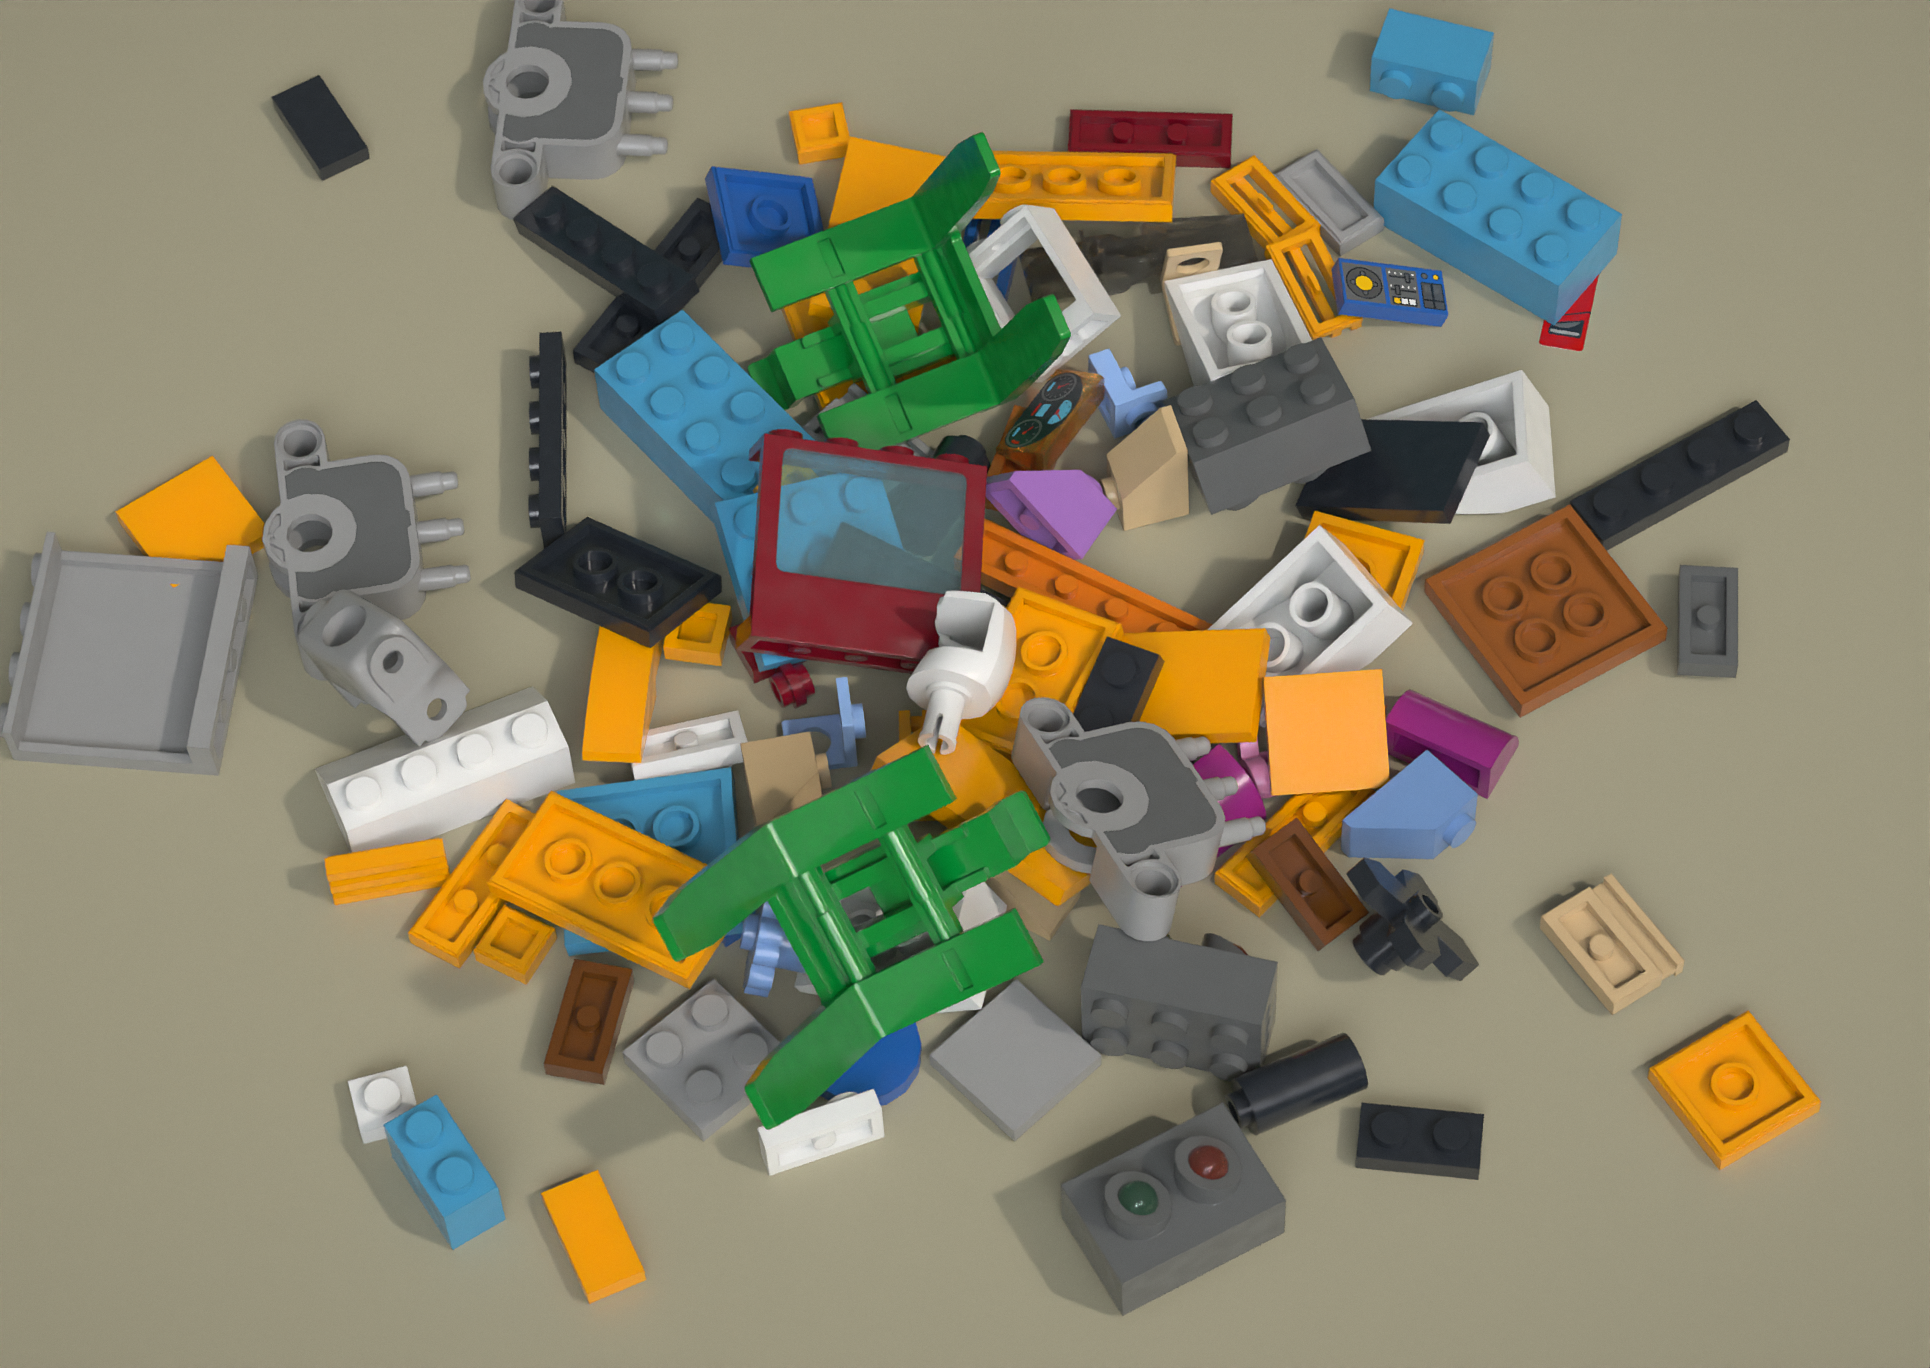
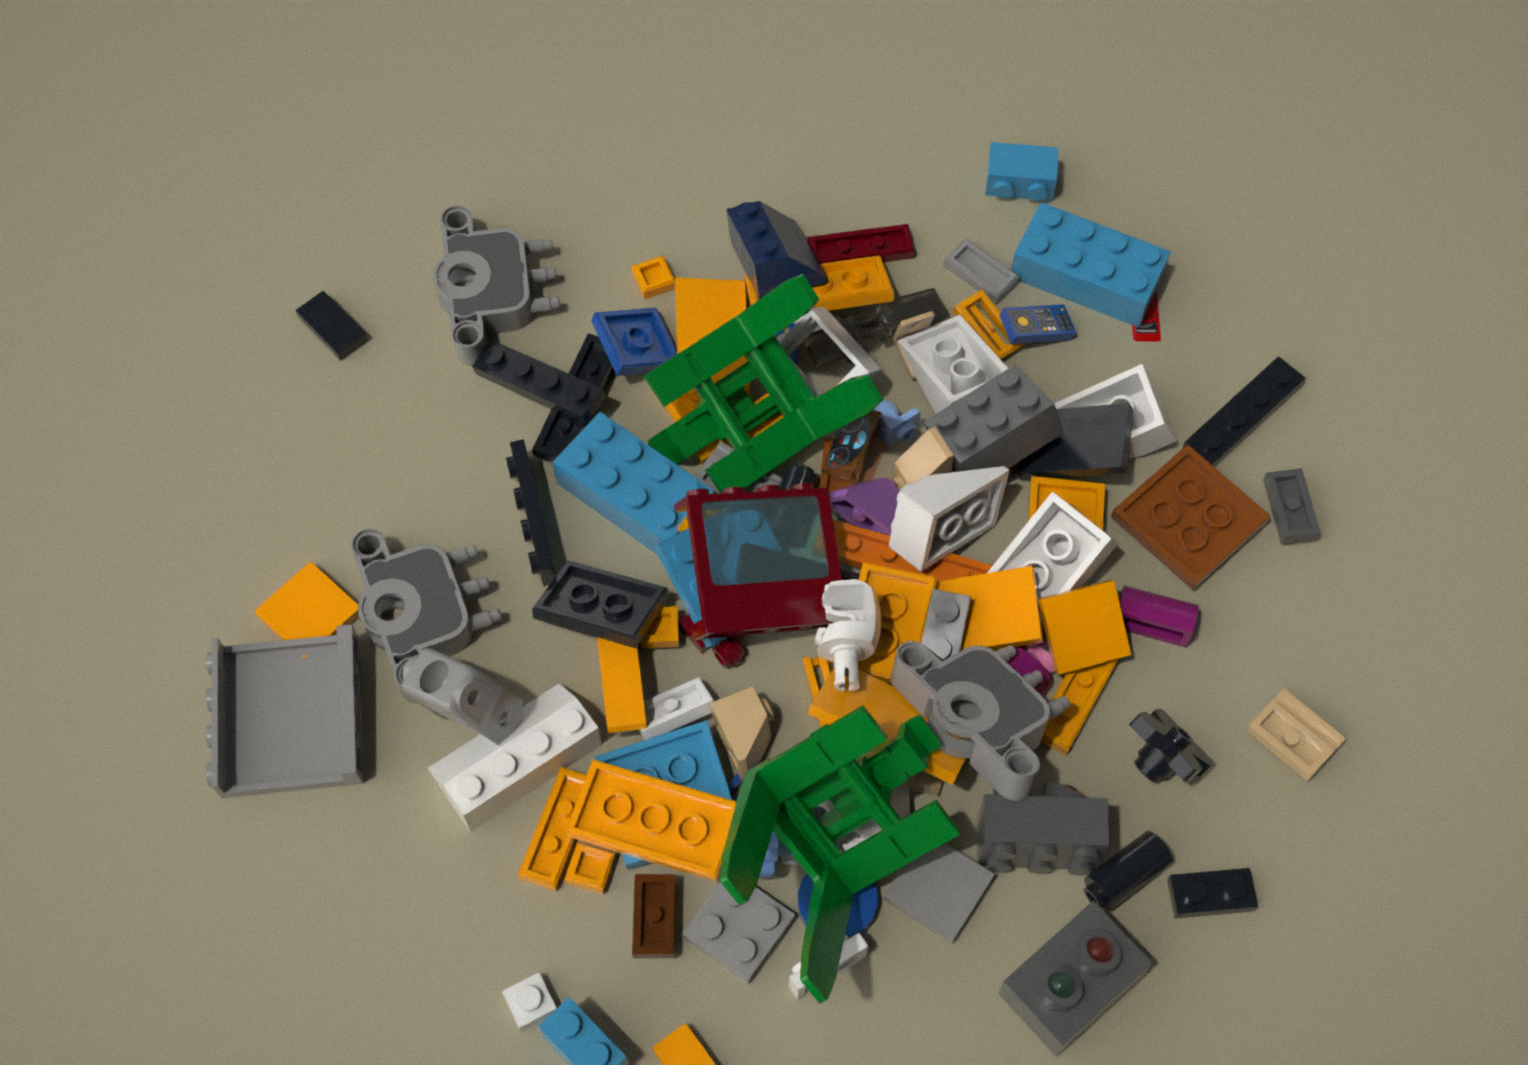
camera: 15 degrees left, 5 degrees up
(387, 871) = (494, 834): light orange tile -> none
(839, 728) = (770, 676): light blue bracket -> none
(1014, 108) = (770, 247): none -> dark blue slope
(1162, 535) = (945, 513): none -> white slope
(1235, 204) = (929, 278): light orange tile -> none
(1307, 884) = (1097, 731): reddish brown plate -> none
(1412, 814) = (1150, 669): medium blue slope -> none
(1734, 1090) = (1397, 818): light orange tile -> none

